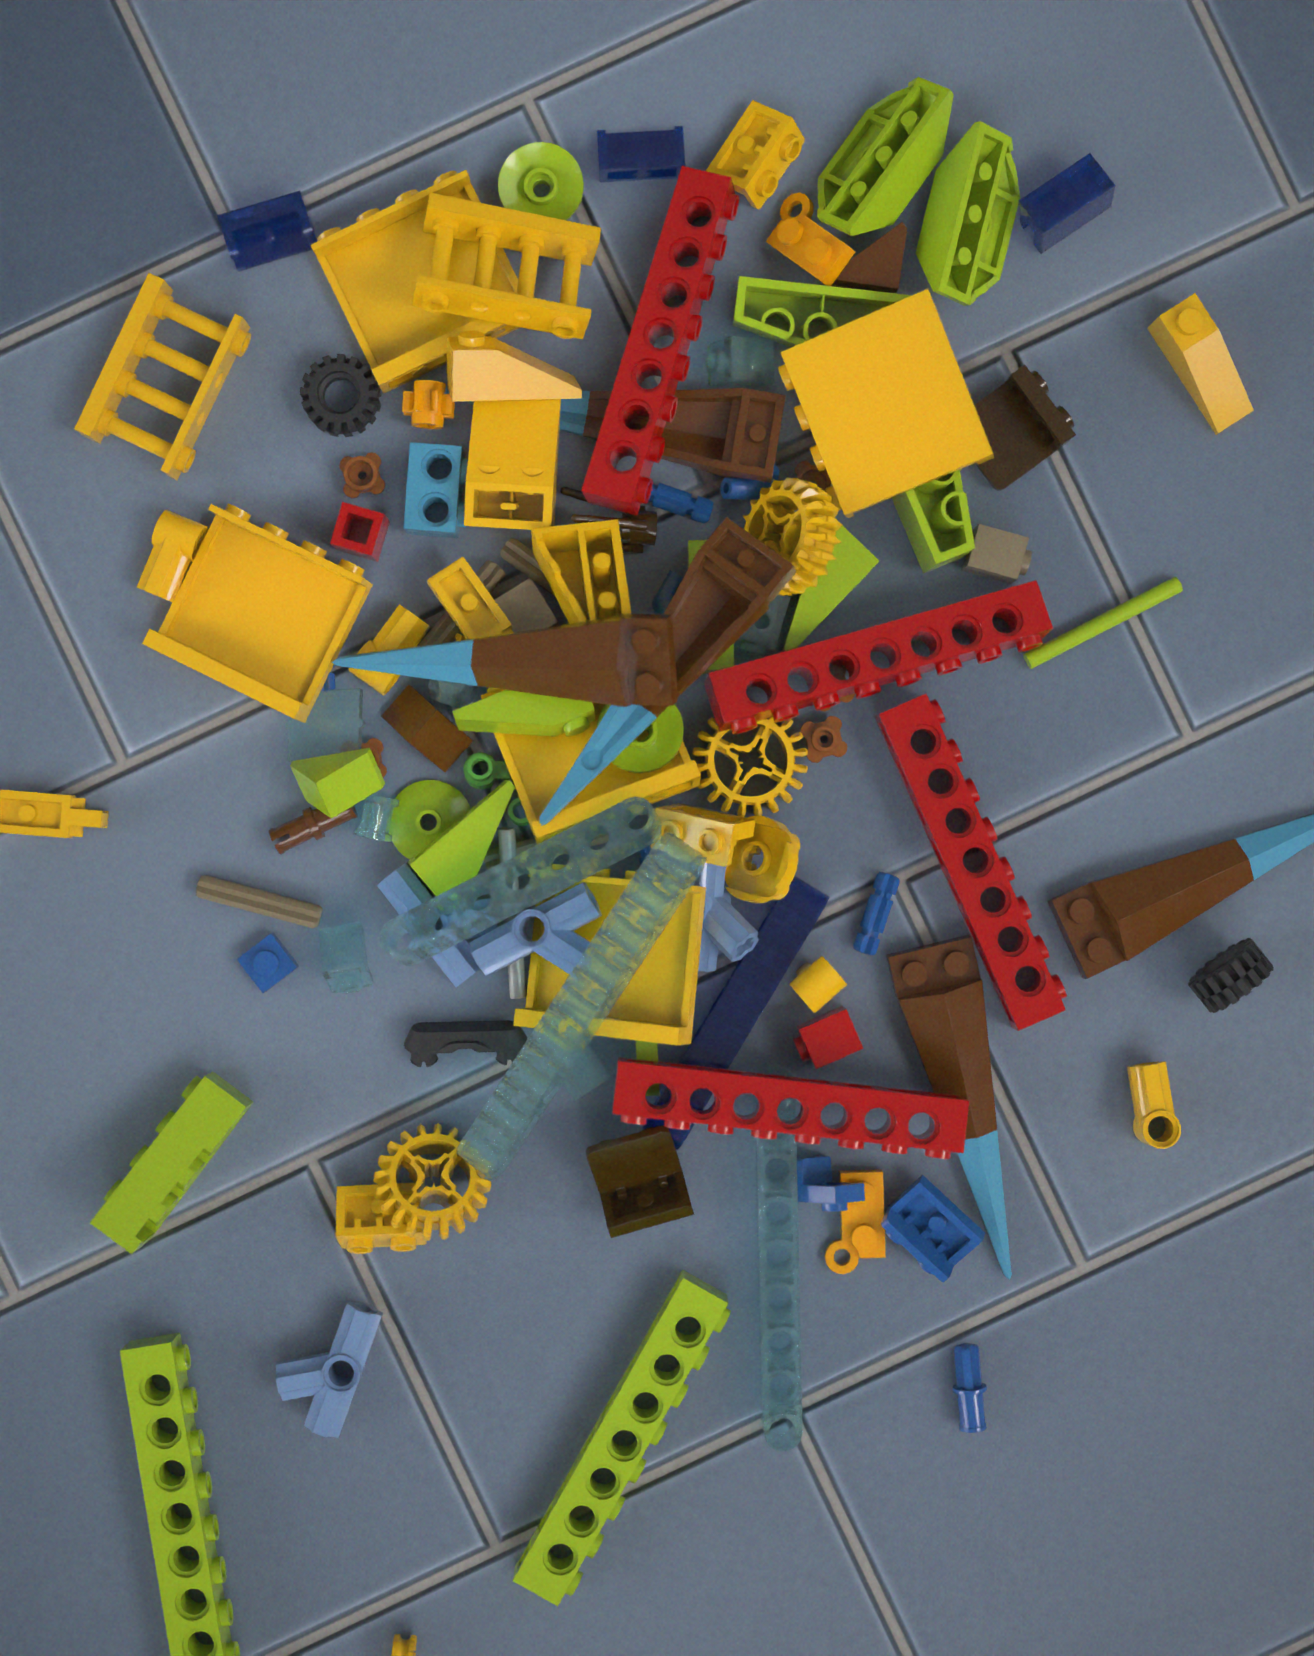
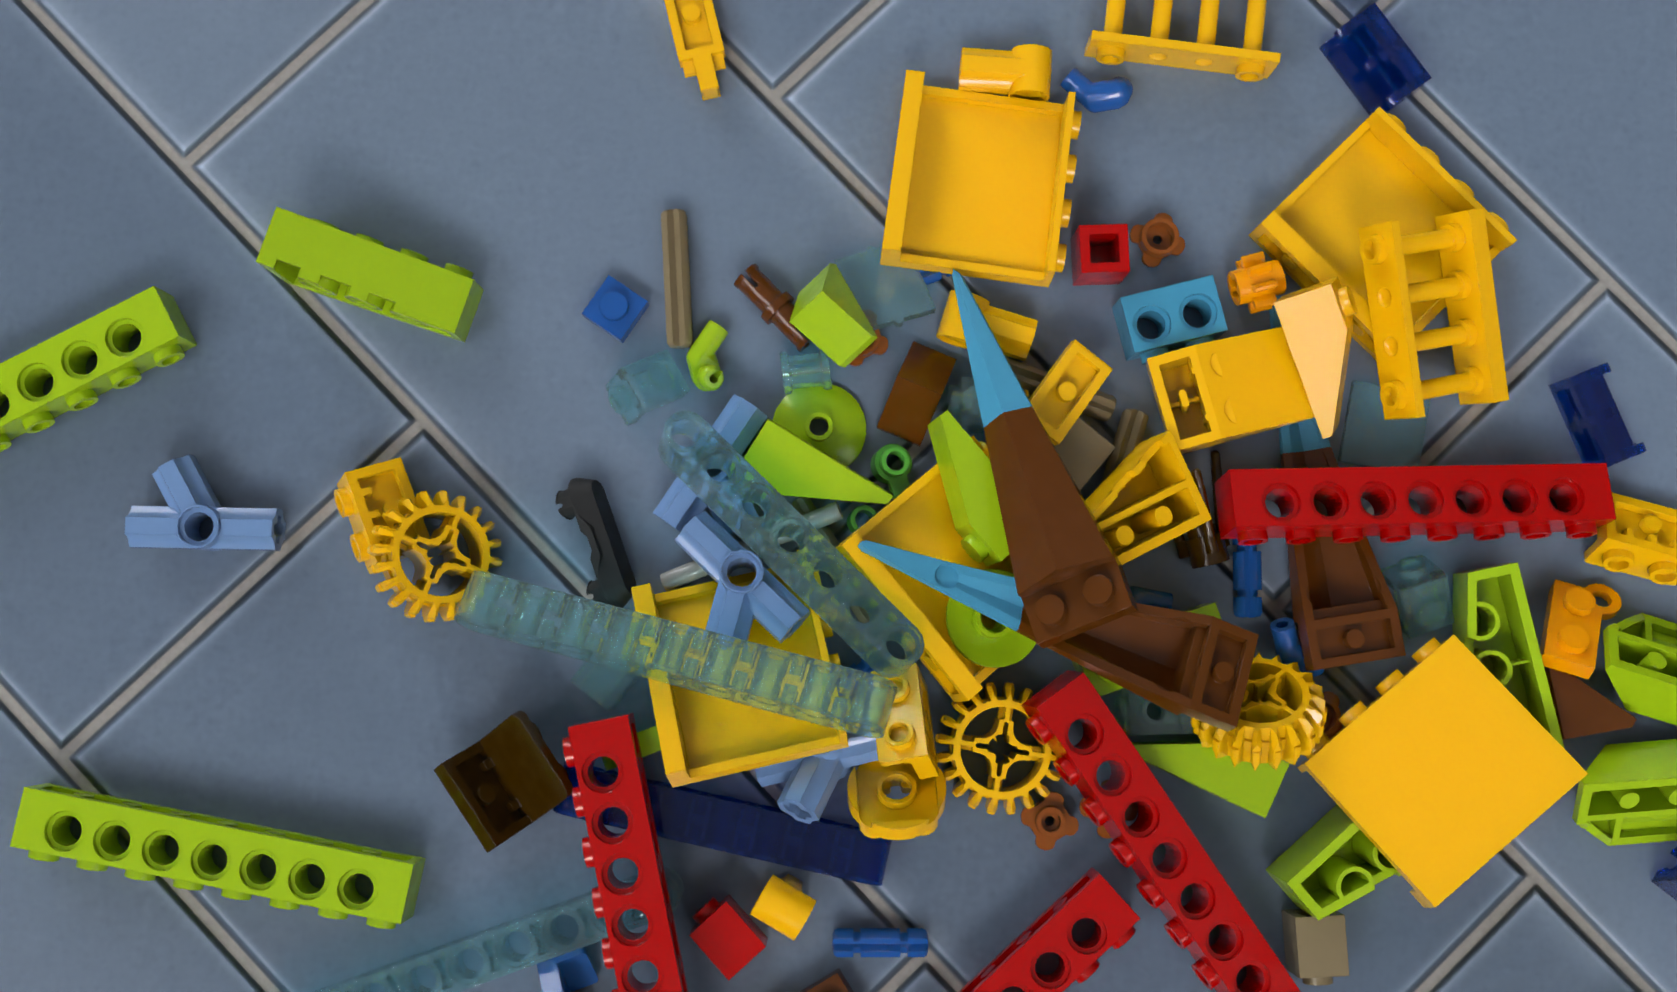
camera: 65 degrees right, 5 degrees down
(218, 480) = (1100, 95): none -> blue arm
(324, 375) = (1252, 171): black tyre -> none
(337, 902) = (702, 358): none -> lime arm
(536, 165) = (1546, 320): lime dish -> none
(602, 344) = (1375, 441): none -> clear light blue piece
(1021, 427) = (1467, 930): dark brown bracket -> none

